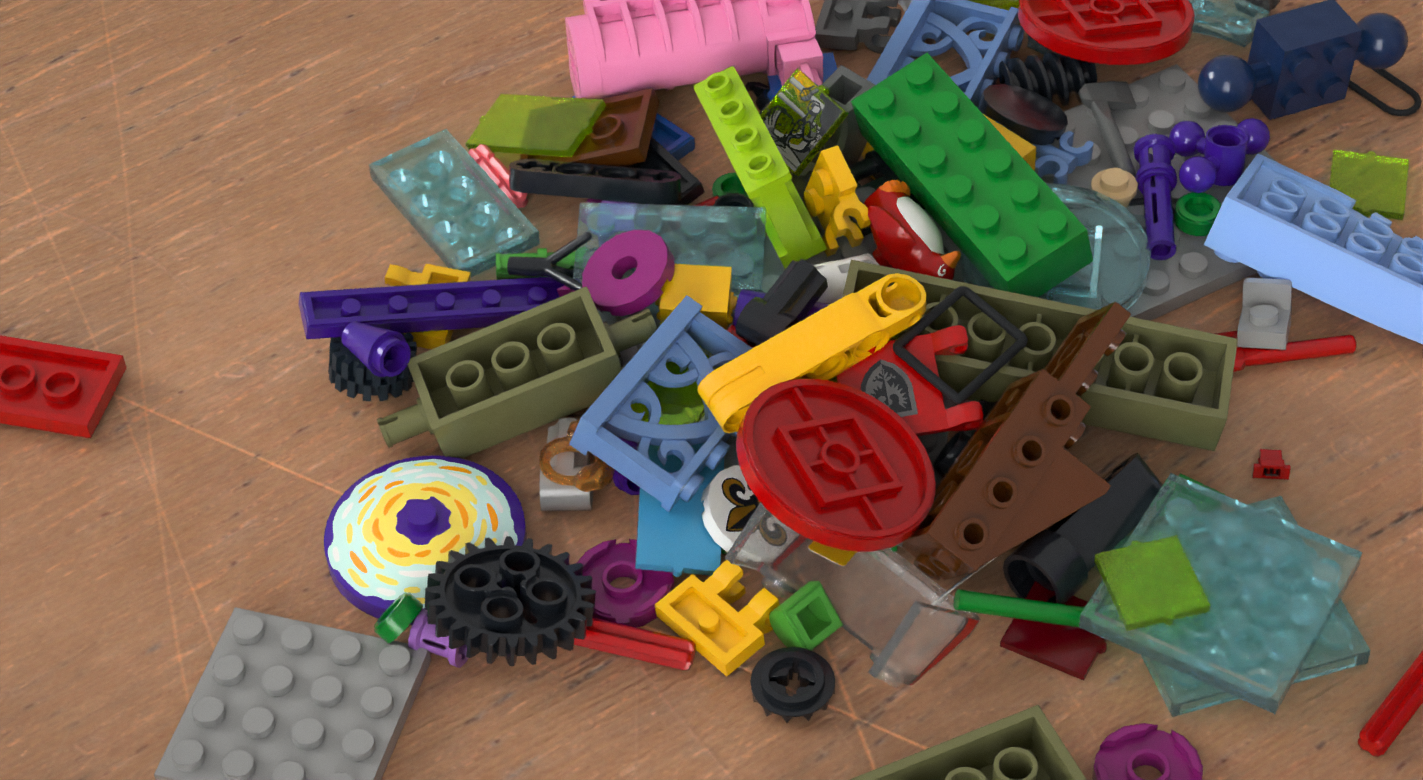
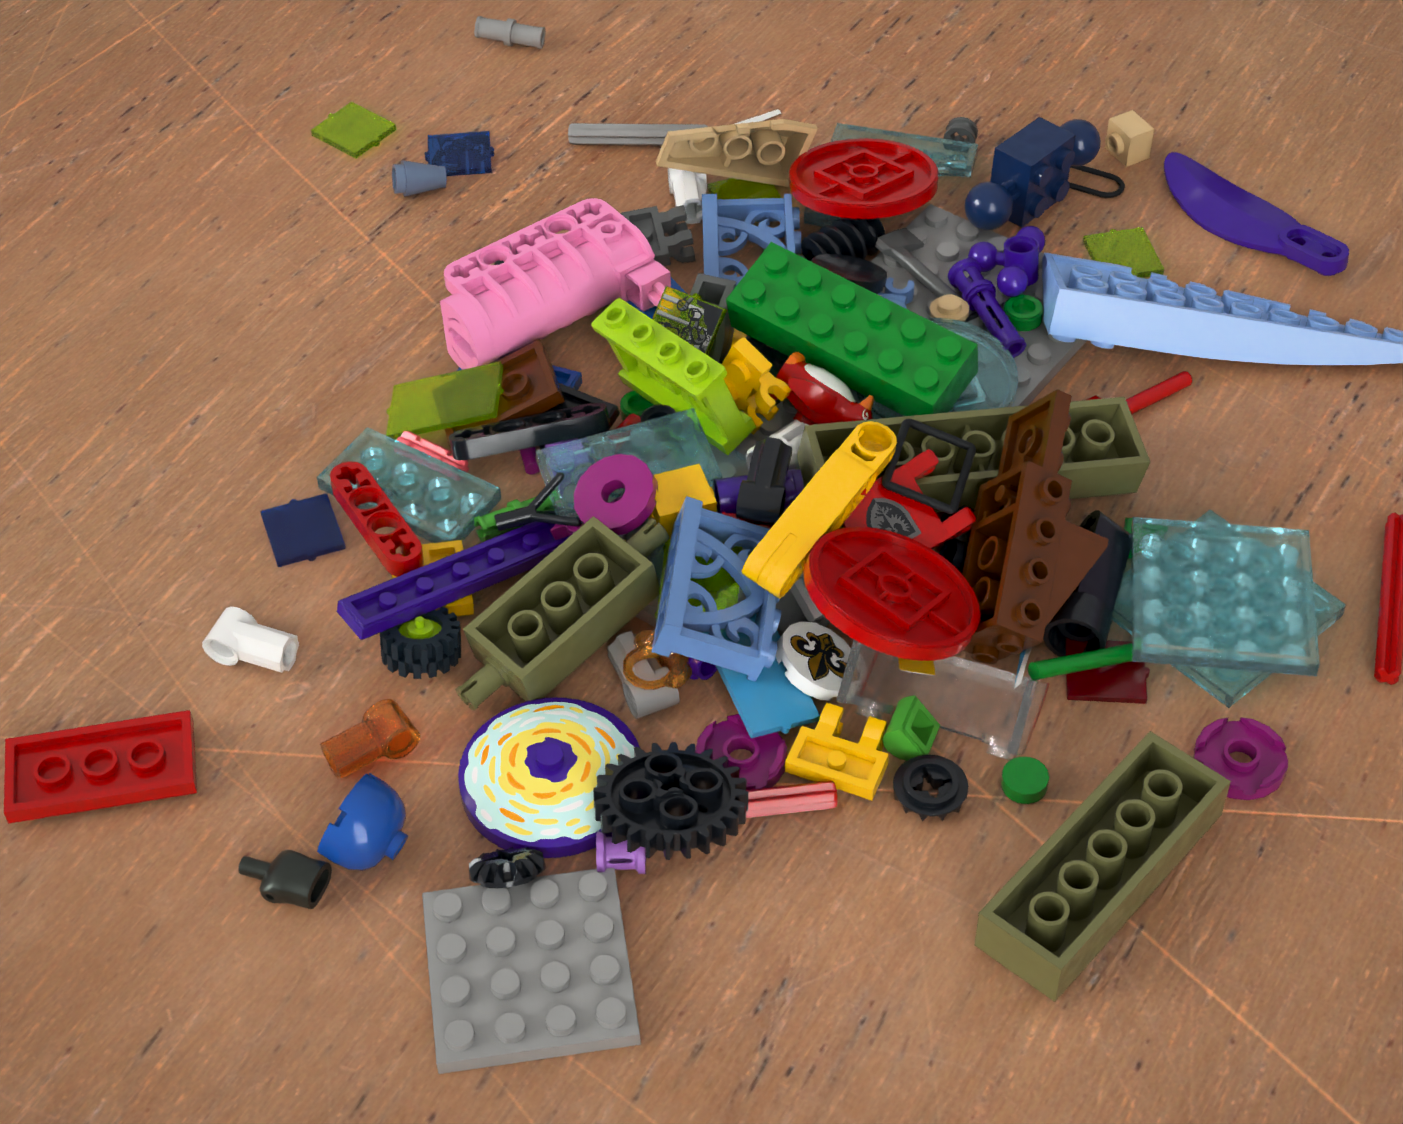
camera: 25 degrees left, 0 degrees up
(126, 550) = (289, 878): none -> pearl dark grey piece
(211, 302) = (241, 638): none -> white piece
(213, 522) = (366, 827): none -> blue cylinder
(287, 440) = (382, 733): none -> clear orange piece
(323, 611) = (506, 867): none -> black gear
(333, 214) = (302, 530): none -> clear blue piece
(378, 348) = (434, 626): dark purple cone -> none
(394, 222) = (380, 516): none -> red beam
(397, 617) = (578, 849): green tile -> none
(897, 712) = (1025, 780): none -> green tile
(1152, 583) = (1174, 606): clear neon green piece -> none
(1265, 313) = (1115, 373): light grey bracket -> none
(1271, 465) = (1185, 489): red piece -> none

